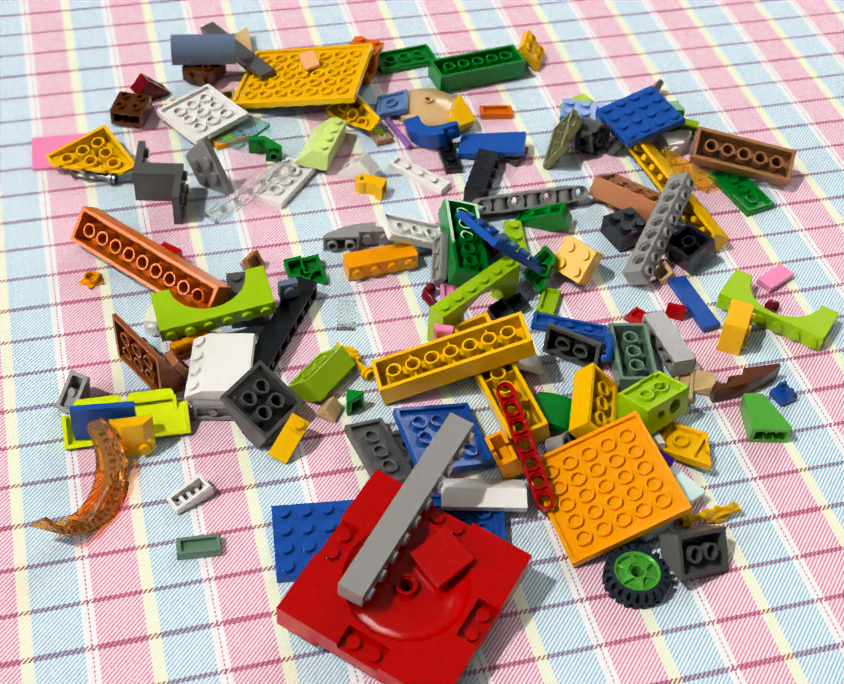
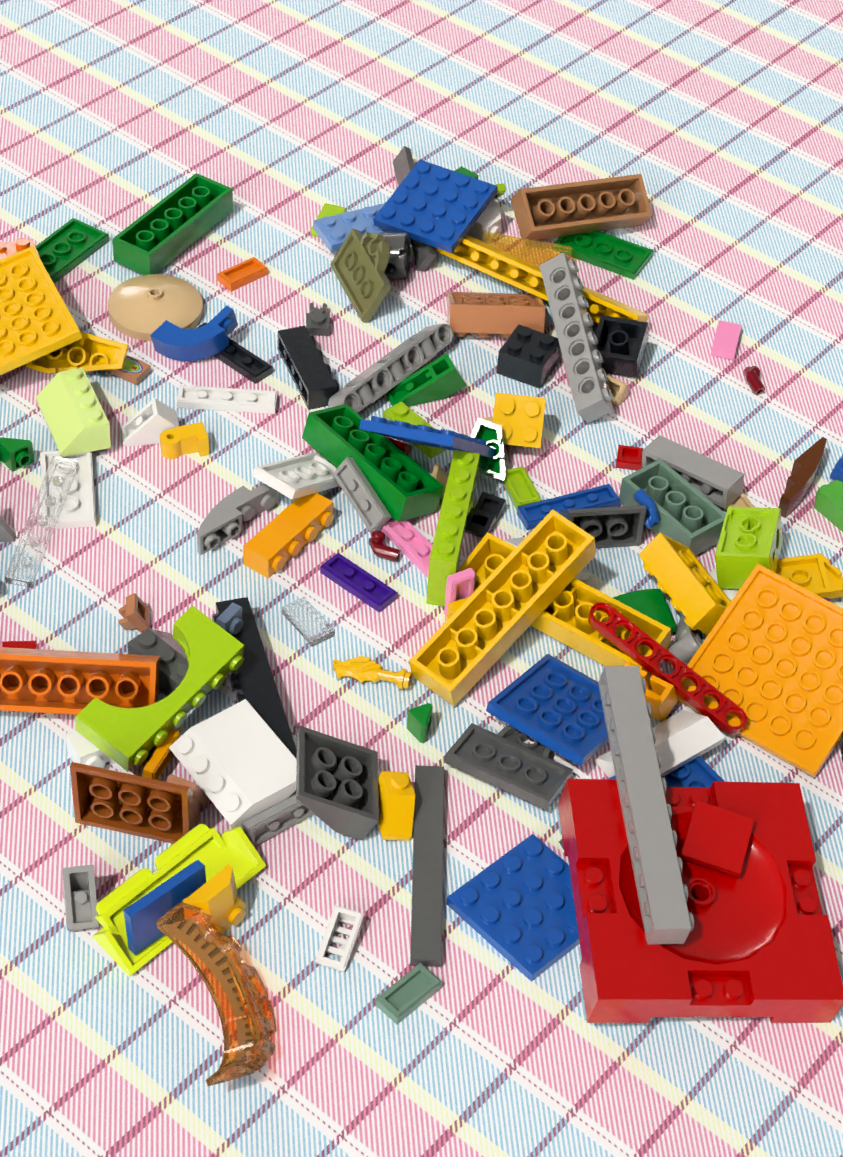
camera: 35 degrees left, 0 degrees up
(279, 483) = (427, 867): none -> dark grey tile
(306, 267) = (206, 588): green slope -> none
(322, 374) = (355, 705): lime slope -> none
(330, 409) = (400, 746): tan slope -> none
(392, 104) = (110, 318): medium blue tile -> none
(397, 308) = (358, 582): none -> dark purple tile
(398, 133) = (153, 357): medium lavender bar -> none
(461, 113) = (209, 294): yellow slope -> none
(505, 143) = (305, 307): blue tile -> none
(531, 50) = (218, 171): yellow plate -> none
(675, 311) = (665, 428): red slope -> none
(694, 304) = (672, 411): blue tile -> none
(703, 382) = (764, 495): tan slope -> none
(736, 327) = (746, 417): yellow brick -> none
(806, 330) = (715, 384): lime arch -> none

